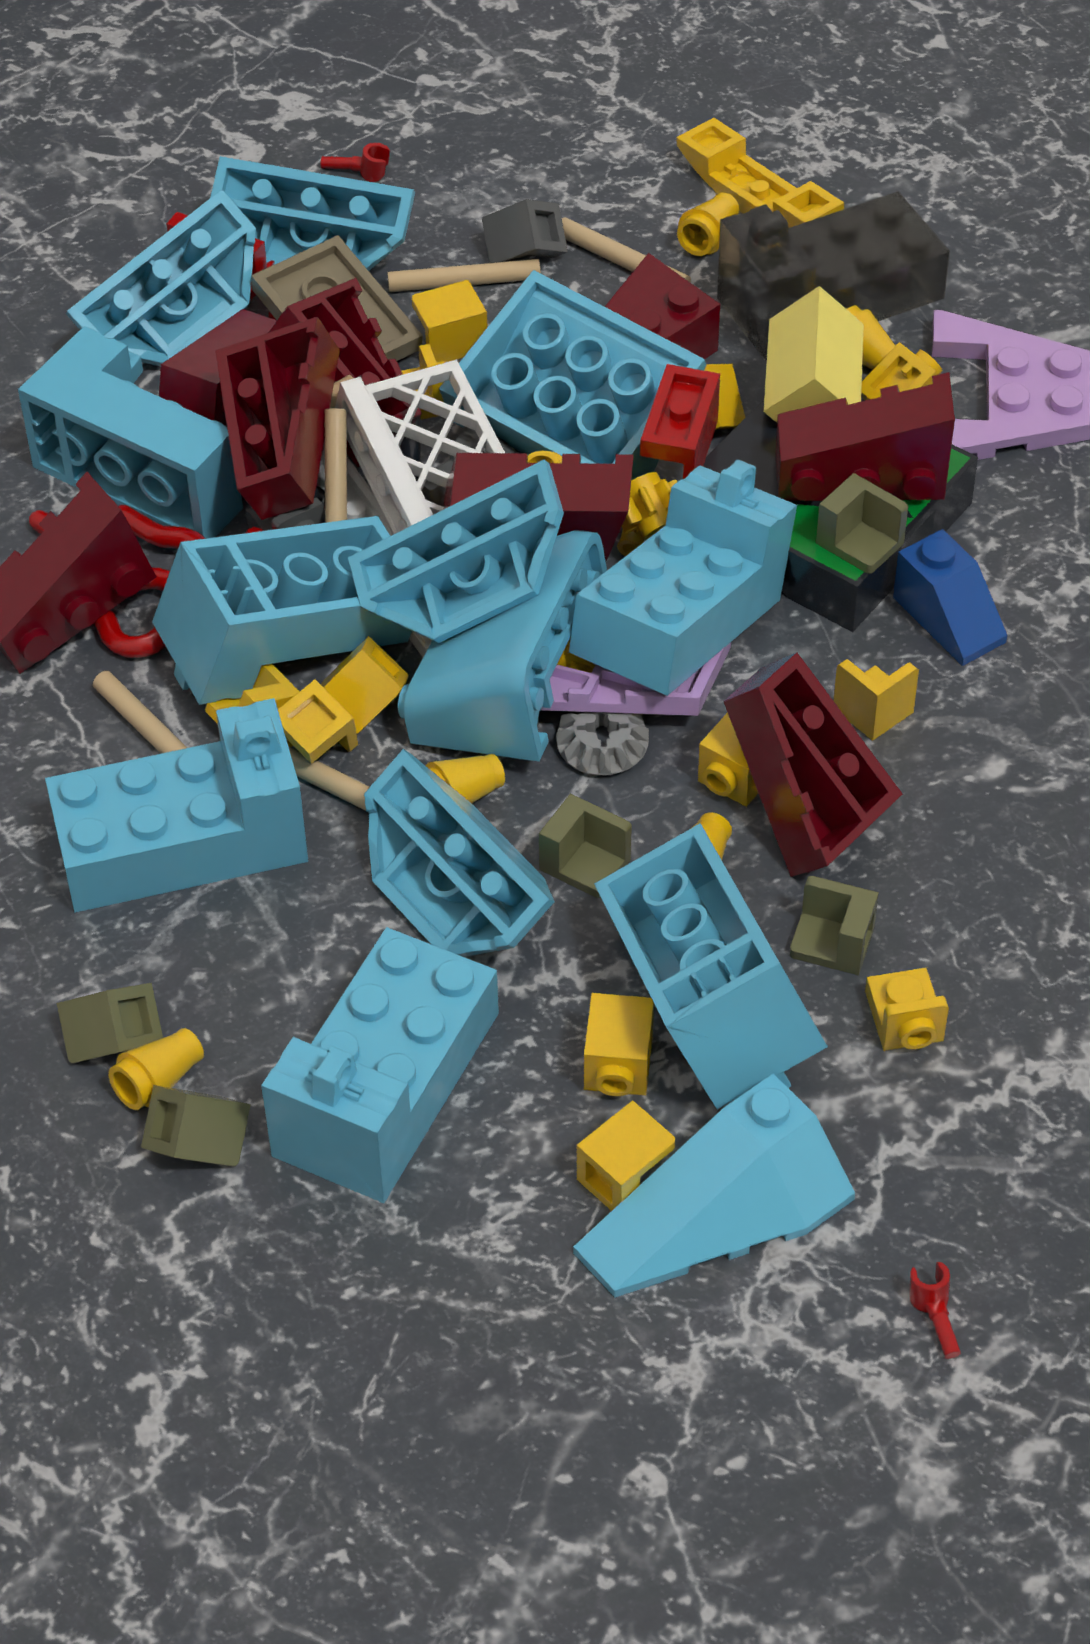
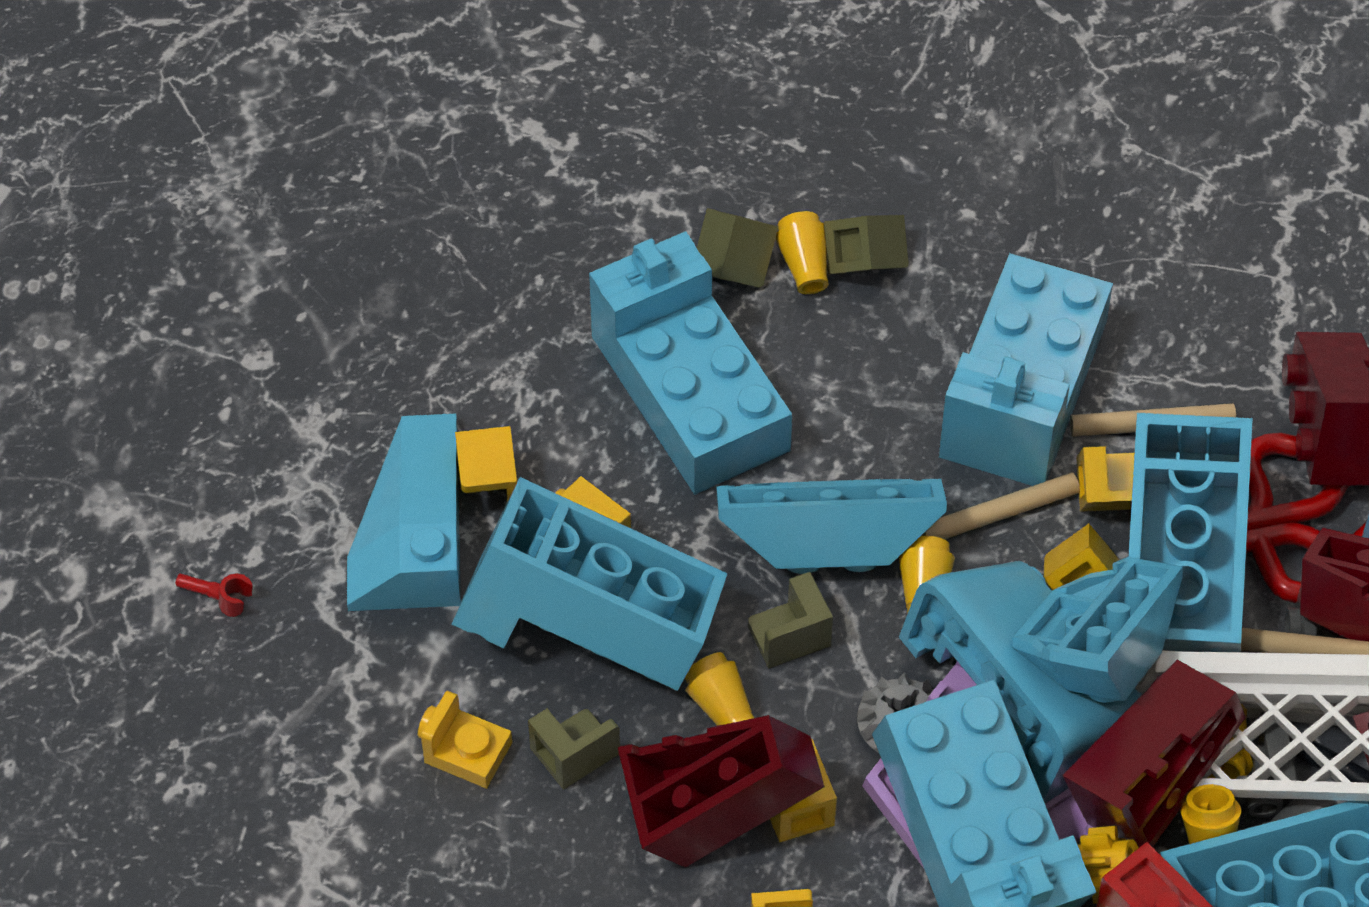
camera: 125 degrees right, 5 degrees up
(316, 722) = (1050, 503): yellow panel -> none

